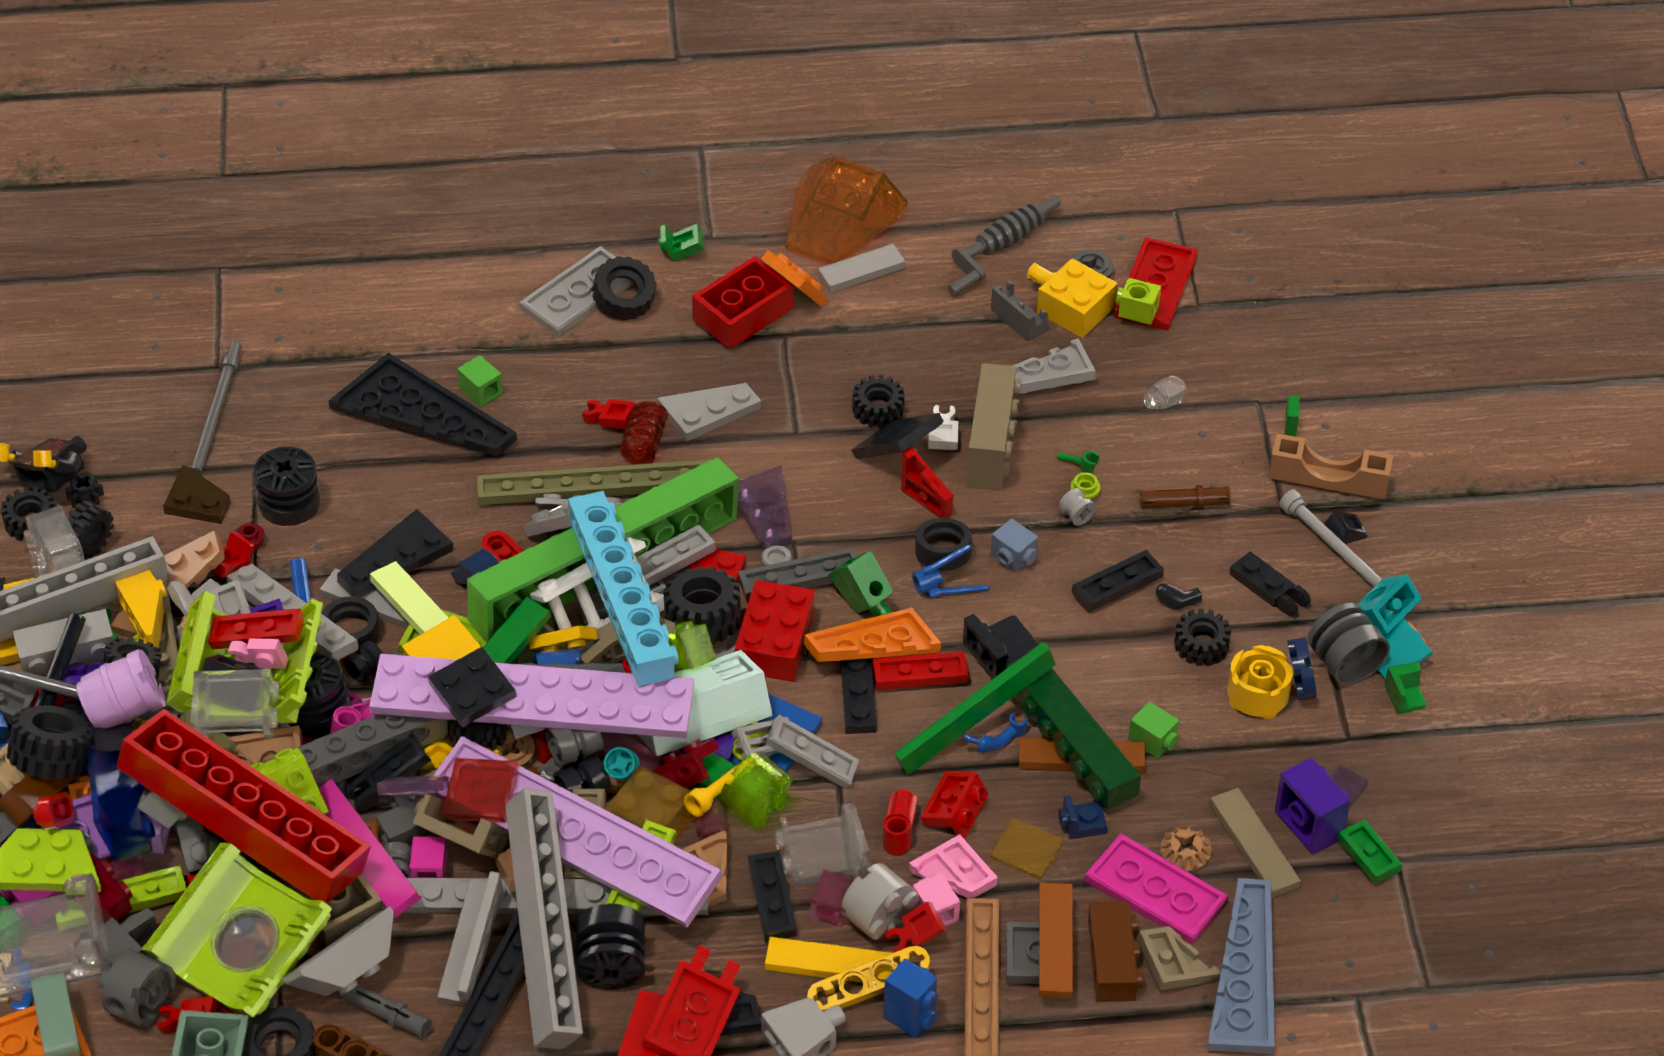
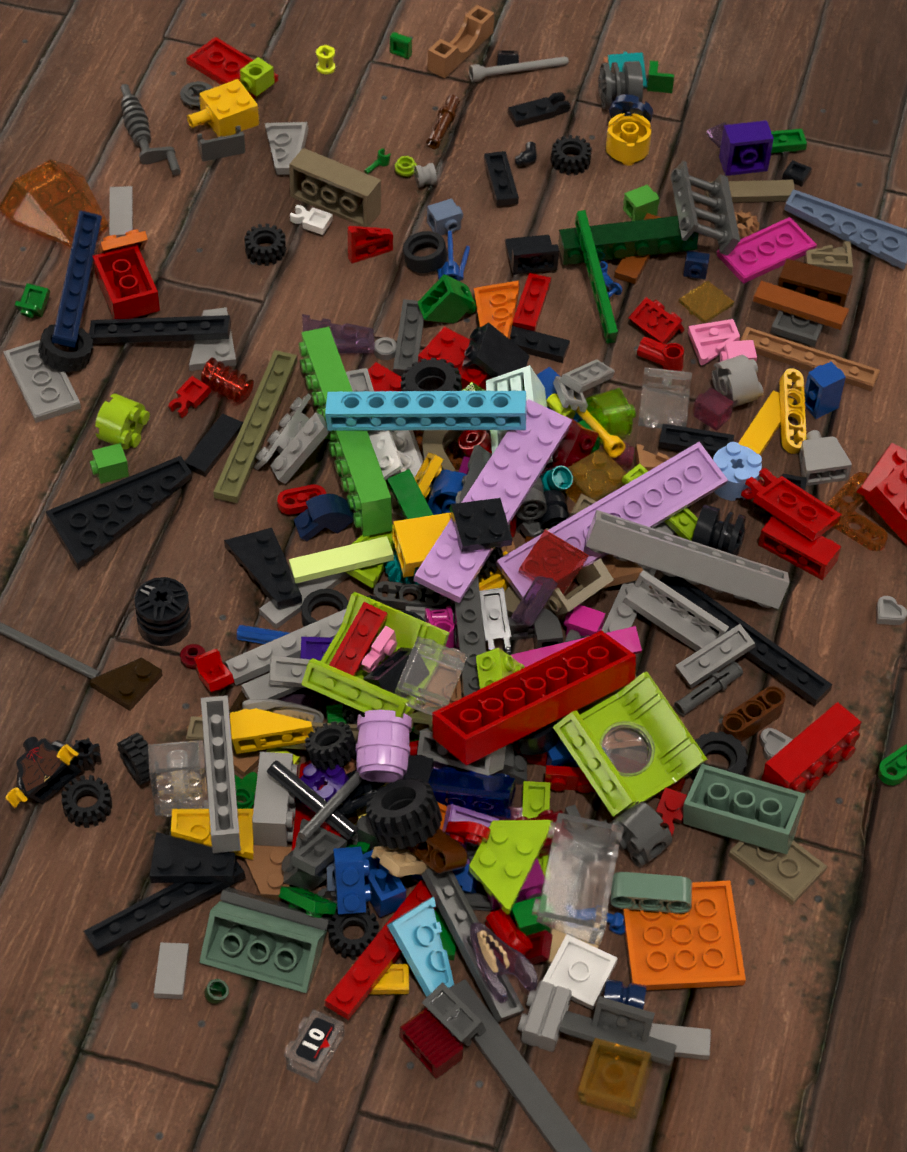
camera: 70 degrees left, 5 degrees up
(194, 560) = (213, 682): medium nougat wing -> none
(346, 958) = (675, 684): light grey wedge -> none
(428, 997) = (715, 656): none -> light grey plate
(532, 364) = (121, 421): none -> lime brick
(548, 457) = (213, 444): none -> black tile
(690, 354) = (160, 329): none -> black plate
(719, 258) = (76, 279): none -> dark blue tile
(734, 936) = (738, 465): none -> light blue brick
(787, 651) = (493, 352): none -> black panel
(898, 436) = (319, 237): black tile -> none
(919, 927) = (767, 367): red plate -> none
(1165, 393) = (343, 98): clear arm -> none
(1184, 804) = (719, 200): none -> dark grey fence
(1220, 352) = (325, 59): none -> neon yellow bush
(1322, 886) = (797, 172): none -> black tile
(1390, 602) = (588, 58): teal brick -> none

